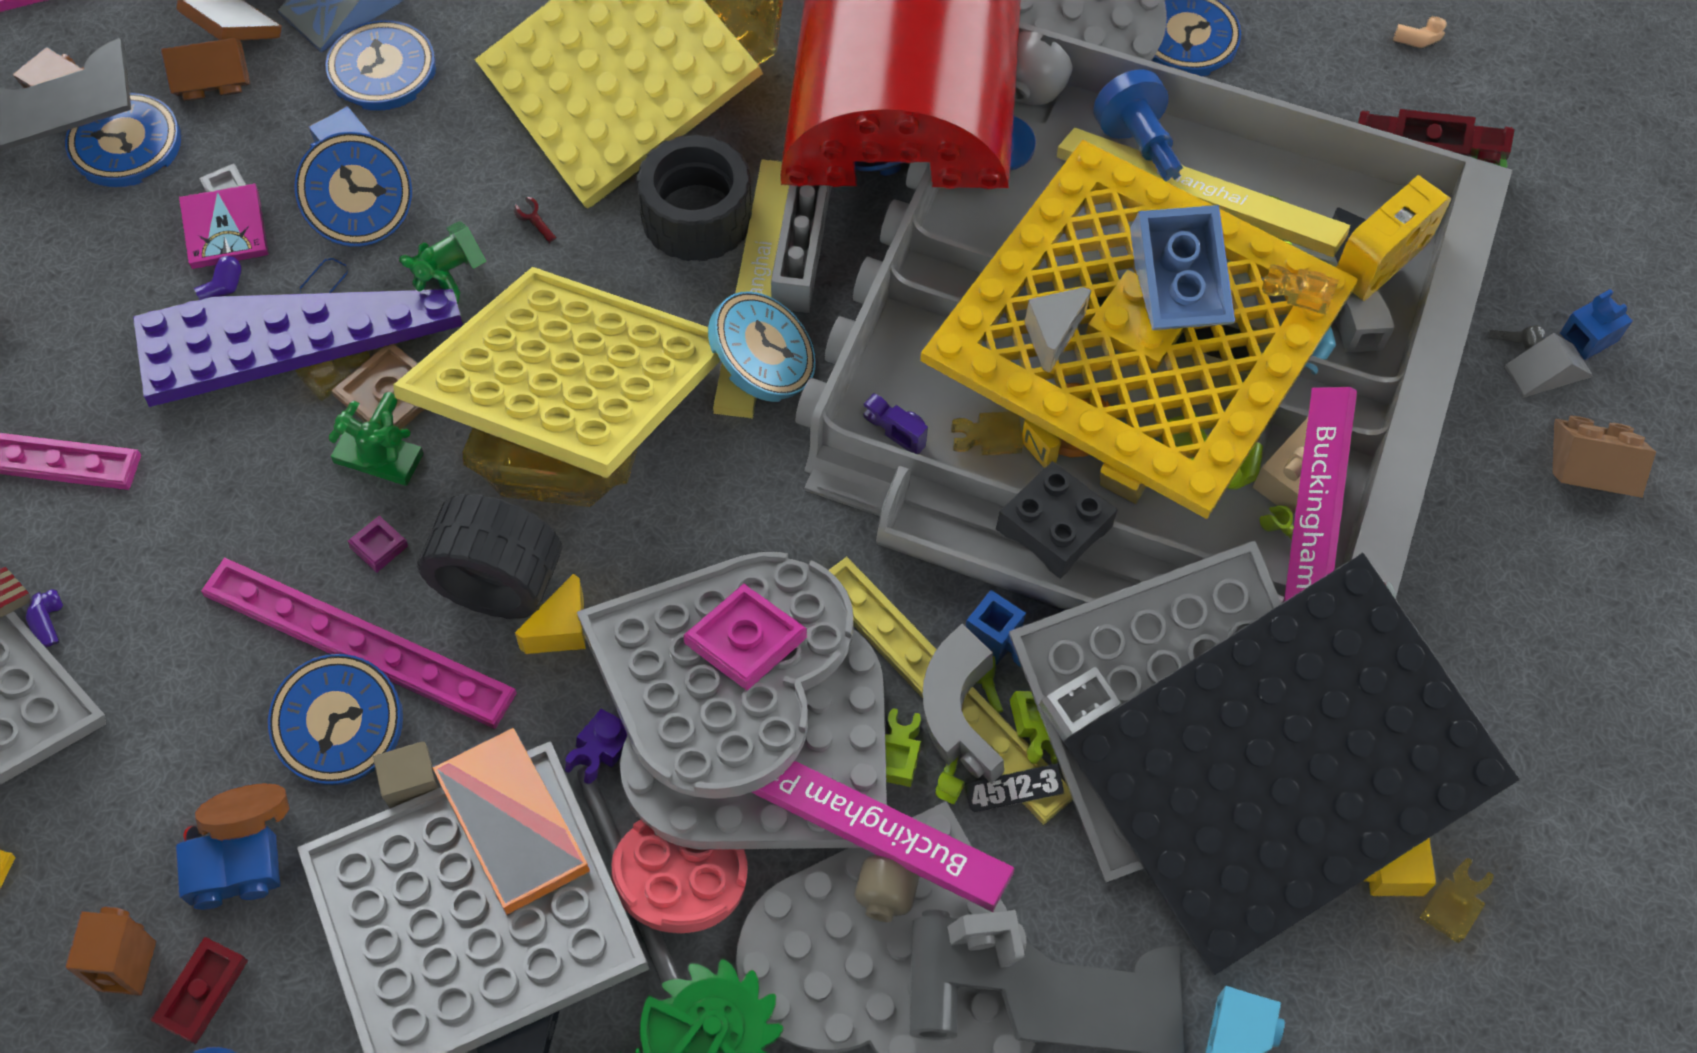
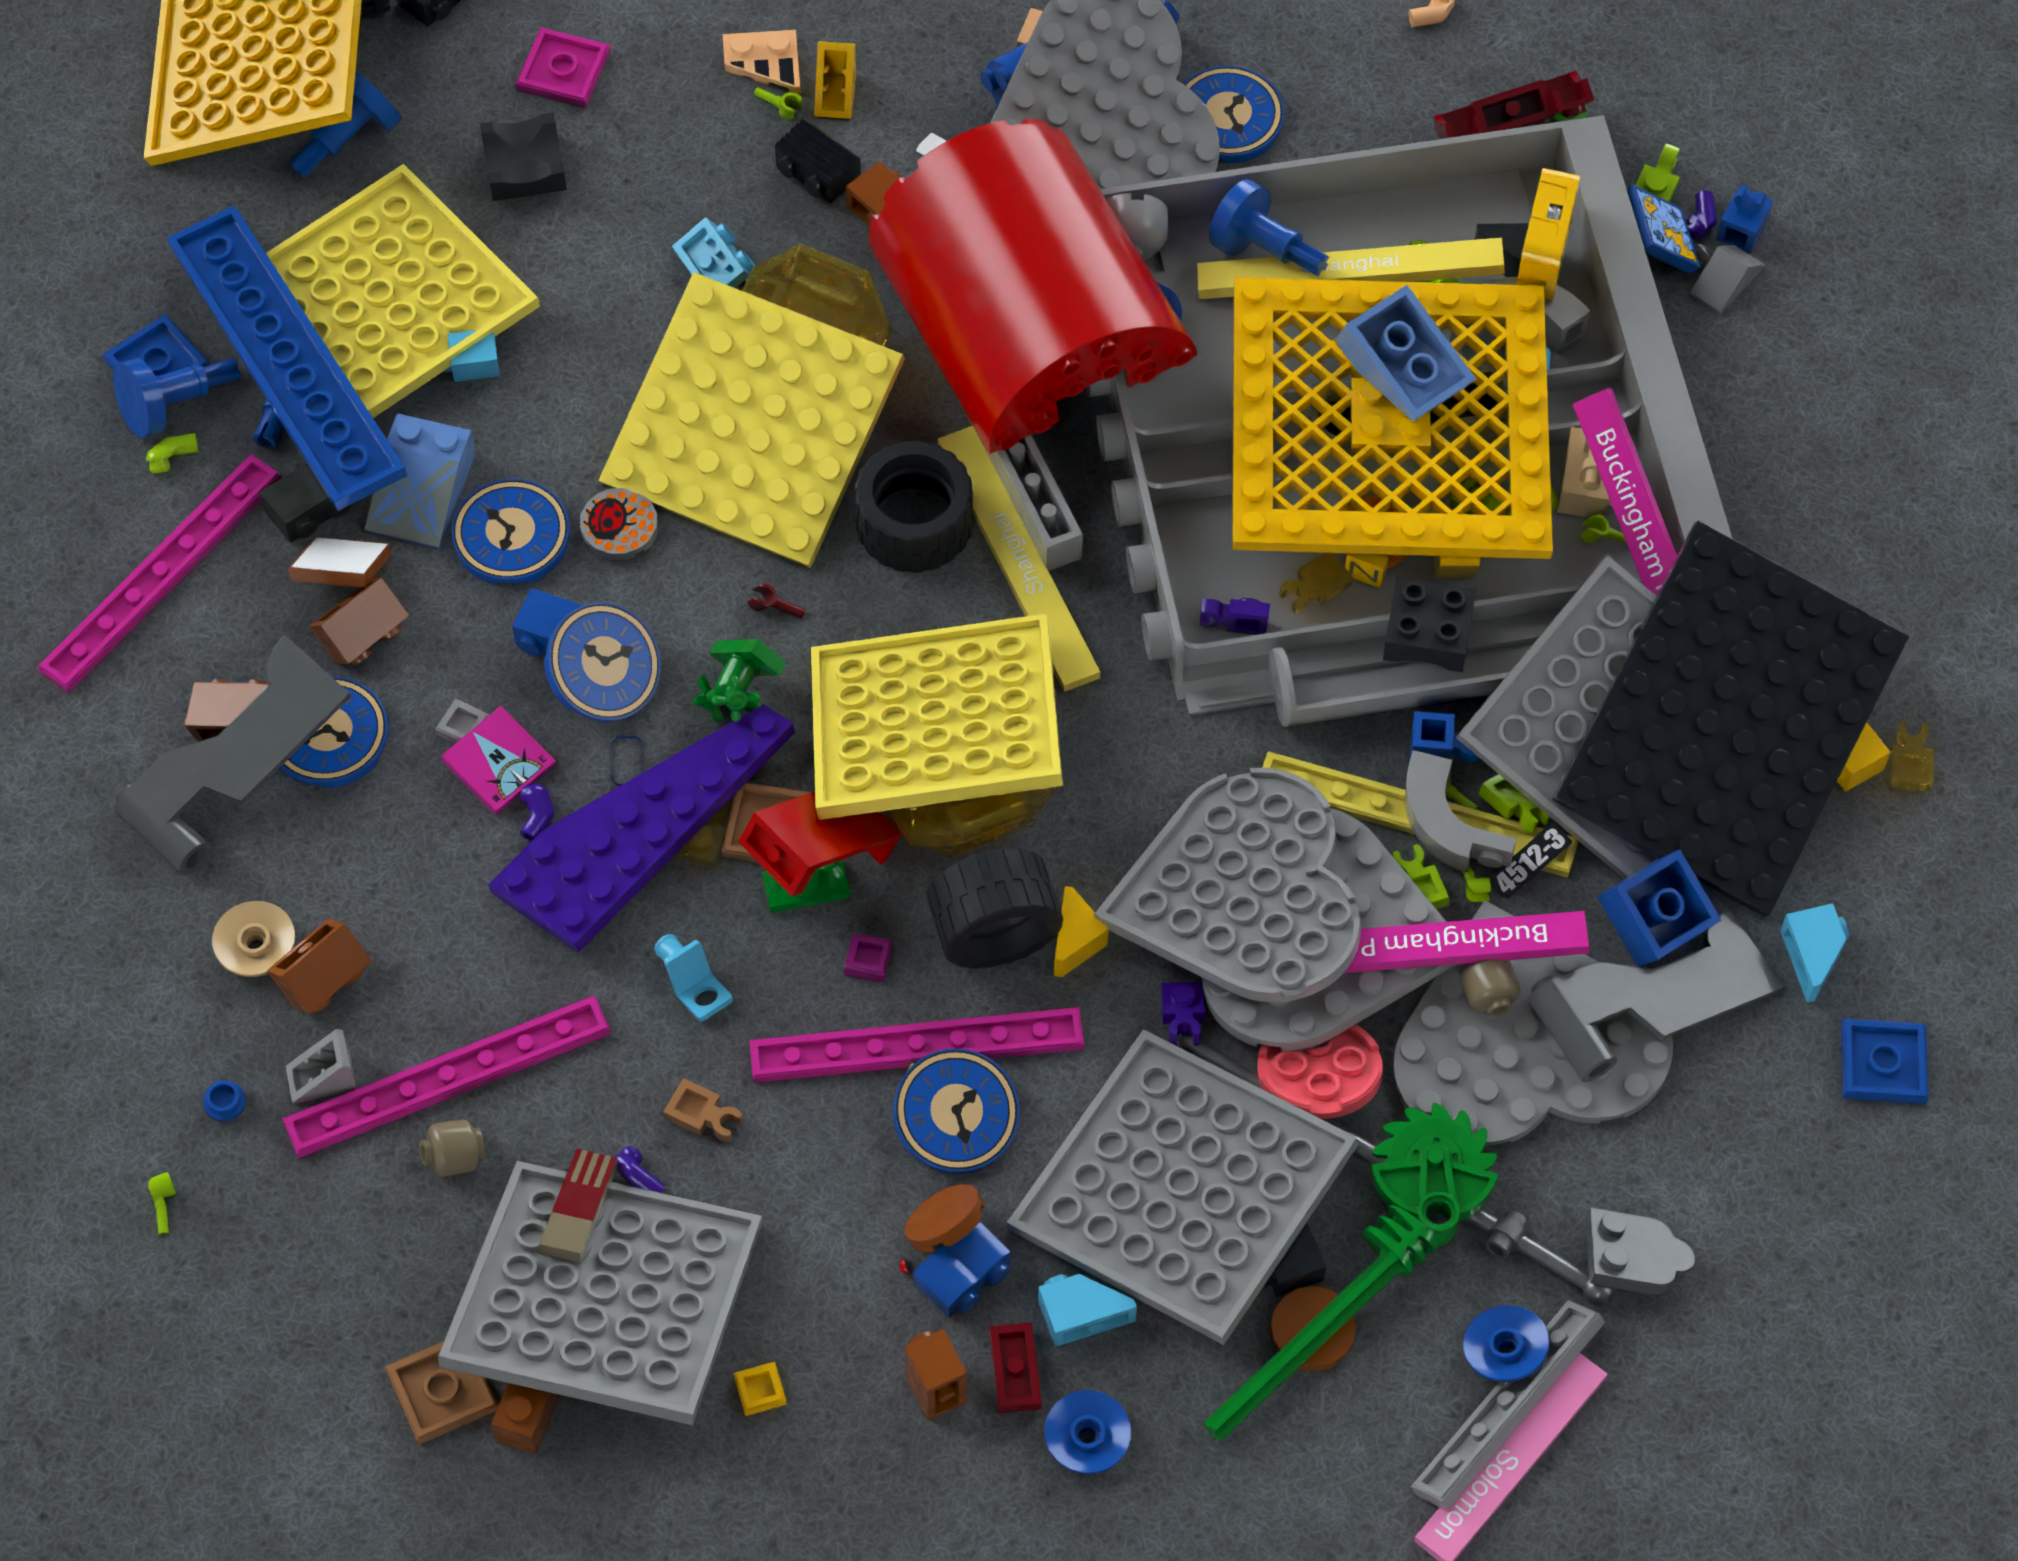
camera: 30 degrees left, 0 degrees up
(134, 593) = (697, 1107): none -> medium nougat plate
(221, 476) = (691, 975): none -> medium azure bracket
(295, 969) = (1082, 1307): none -> medium azure slope
(362, 403) = (794, 843): none -> red panel
(405, 773) = (1049, 1119): dark tan panel -> none
(465, 99) = (618, 524): none -> tile
(511, 821) = (1165, 1101): tile -> none
(745, 636) = (1250, 855): dark pink tile -> none
(762, 346) = (1075, 609): tile -> none
(991, 930) = (1600, 965): light grey bracket -> none
(1053, 321) = (1329, 459): light grey slope -> none
(1078, 703) = (1549, 763): light grey slope -> none
(1102, 906) = (1659, 908): none -> blue brick
(1305, 290) = (1511, 318): clear yellow plate -> none
(1509, 294) = (1663, 230): none -> tile
(1533, 261) = (1659, 179): none -> lime plate
(1557, 310) = (1705, 217): none -> dark purple arm
(1601, 456) = (1813, 335): medium nougat slope -> none

